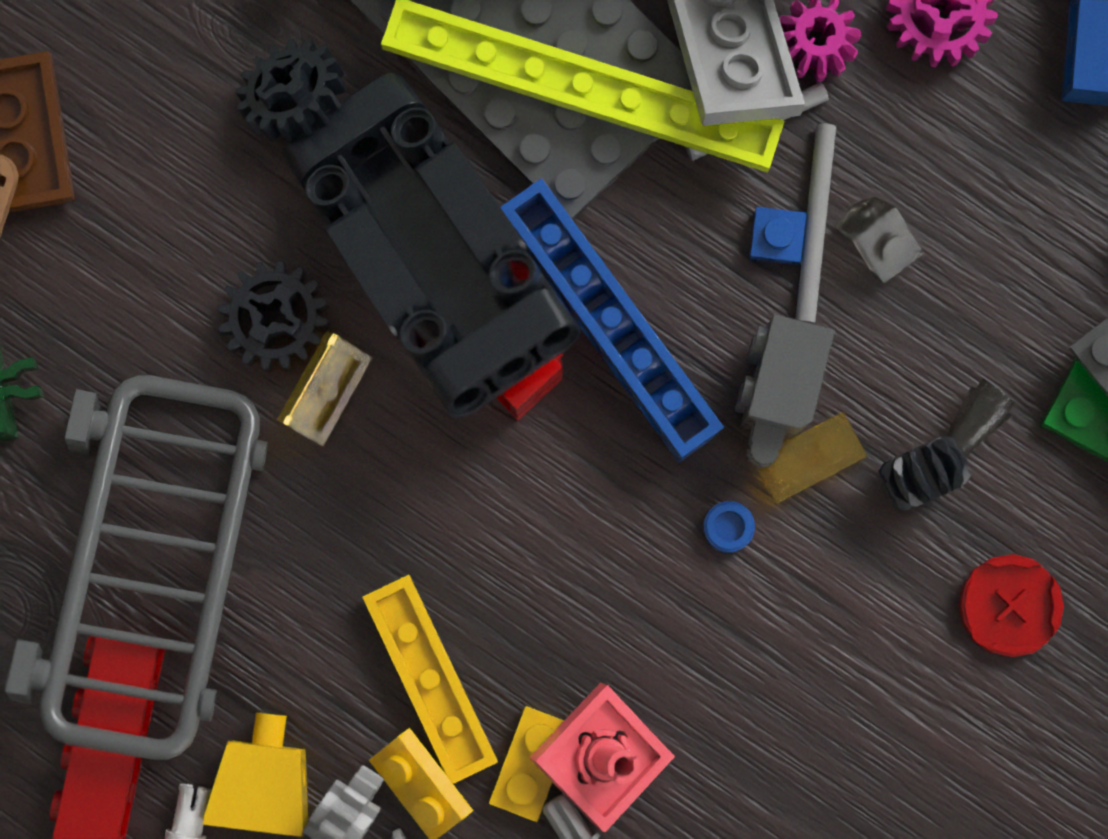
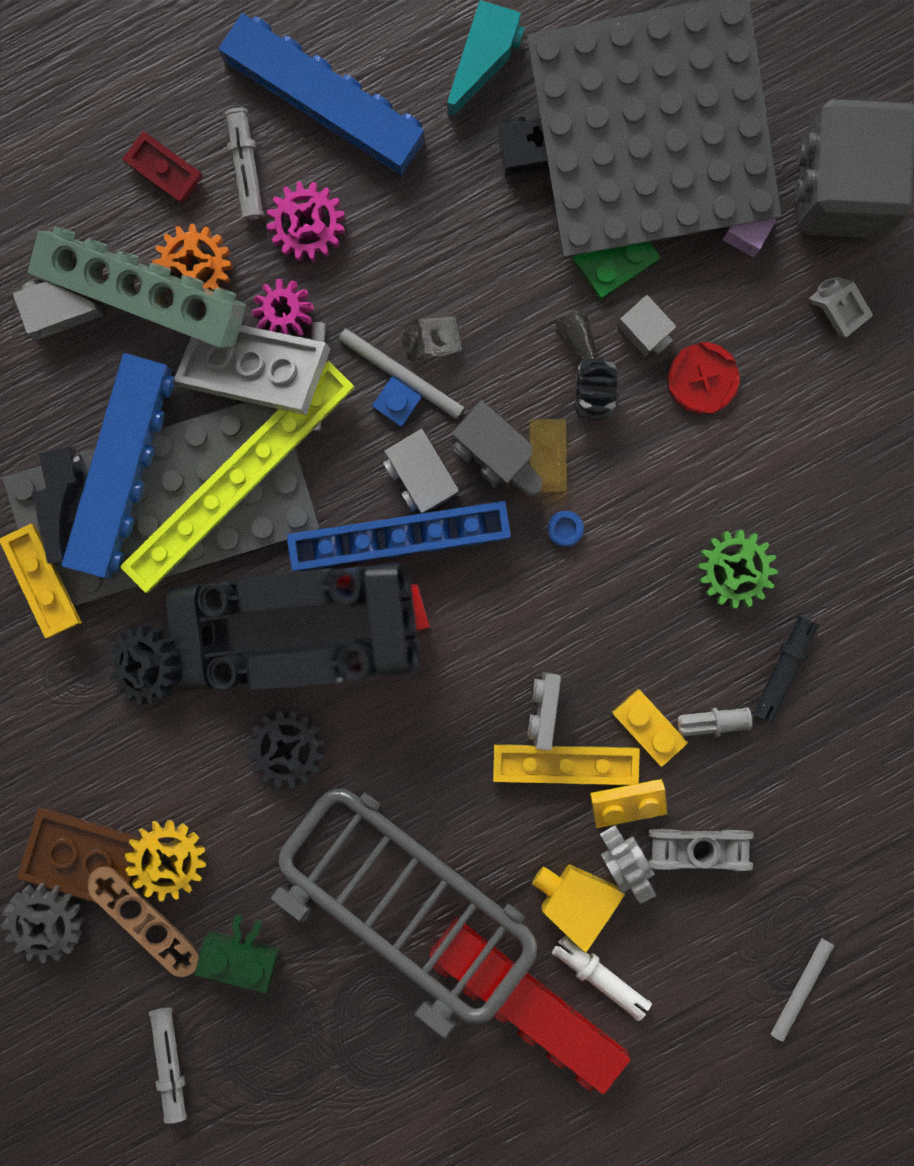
camera: 60 degrees left, 5 degrees up
(38, 227) = (176, 851): none -> yellow gear
(324, 388) = (349, 739): clear yellow plate -> none
(464, 620) = (542, 725): none -> light grey plate
(615, 769) = (680, 678): coral plate -> none
(705, 308) = (421, 473): none -> light grey brick
(814, 771) = (744, 554): none -> bright green gear
(1037, 499) = (647, 327): none -> light grey brick

